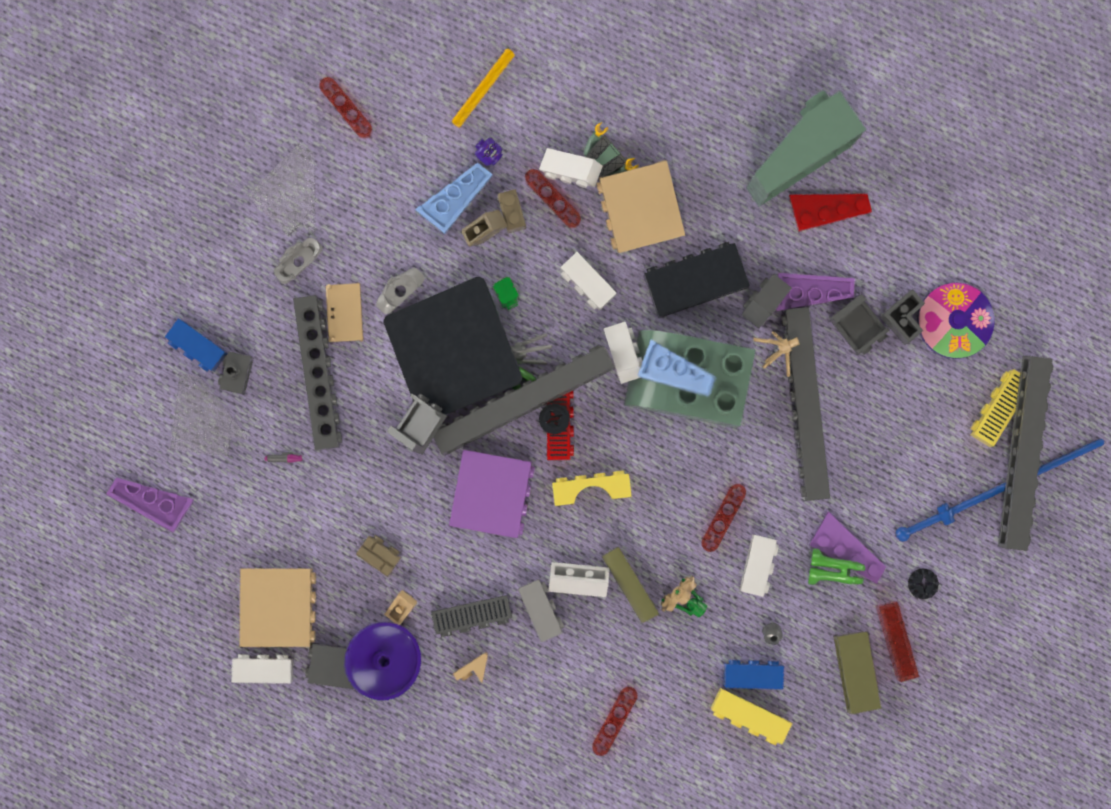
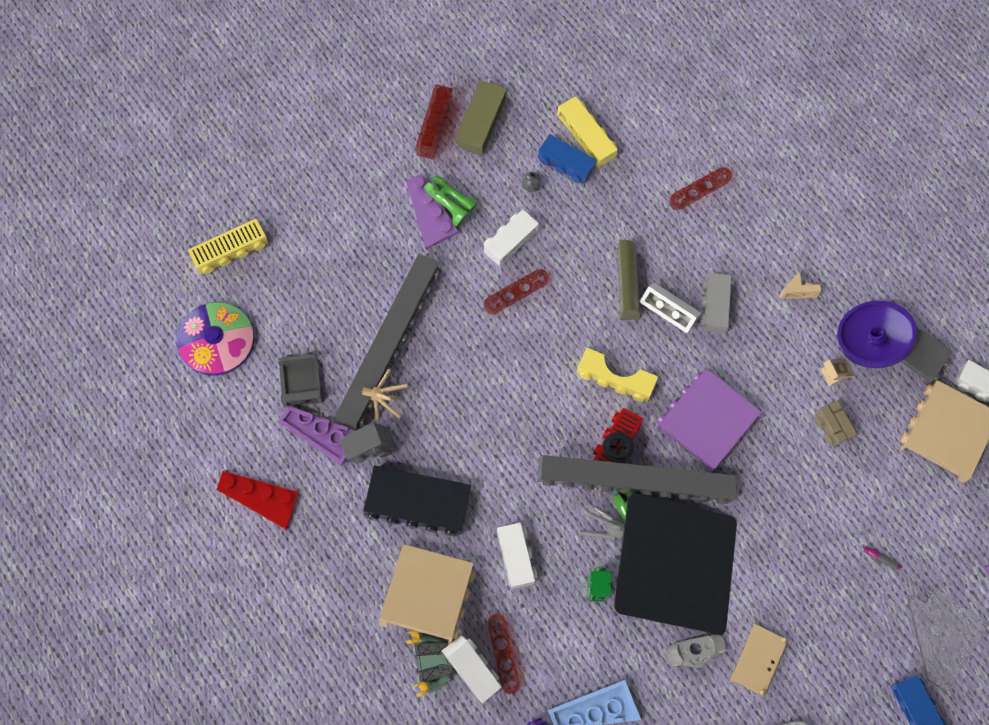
camera: 150 degrees left, 15 degrees down
(235, 373) = (892, 660): dark grey brick -> none
(302, 306) = (839, 552): dark grey brick -> none
(418, 424) = (744, 513): panel -> none
(470, 615) = (778, 331): dark grey brick -> none
(484, 228) = (586, 659): dark tan brick -> none
(511, 211) = (549, 662): dark tan brick -> none
(624, 351) = (521, 470): white brick -> none
(672, 370) = (493, 420): light blue wing -> none
(682, 595) = (590, 242): plant -> none
(726, 362) = (477, 415): sand green brick -> none
(821, 135) = (244, 553): sand green slope -> none
(899, 317) = (260, 366): dark grey brick -> none
(916, 577) = (386, 160): black gear -> none
(946, 514) = (329, 193): blue bar -> none
(1025, 453) = (233, 199): dark grey brick -> none

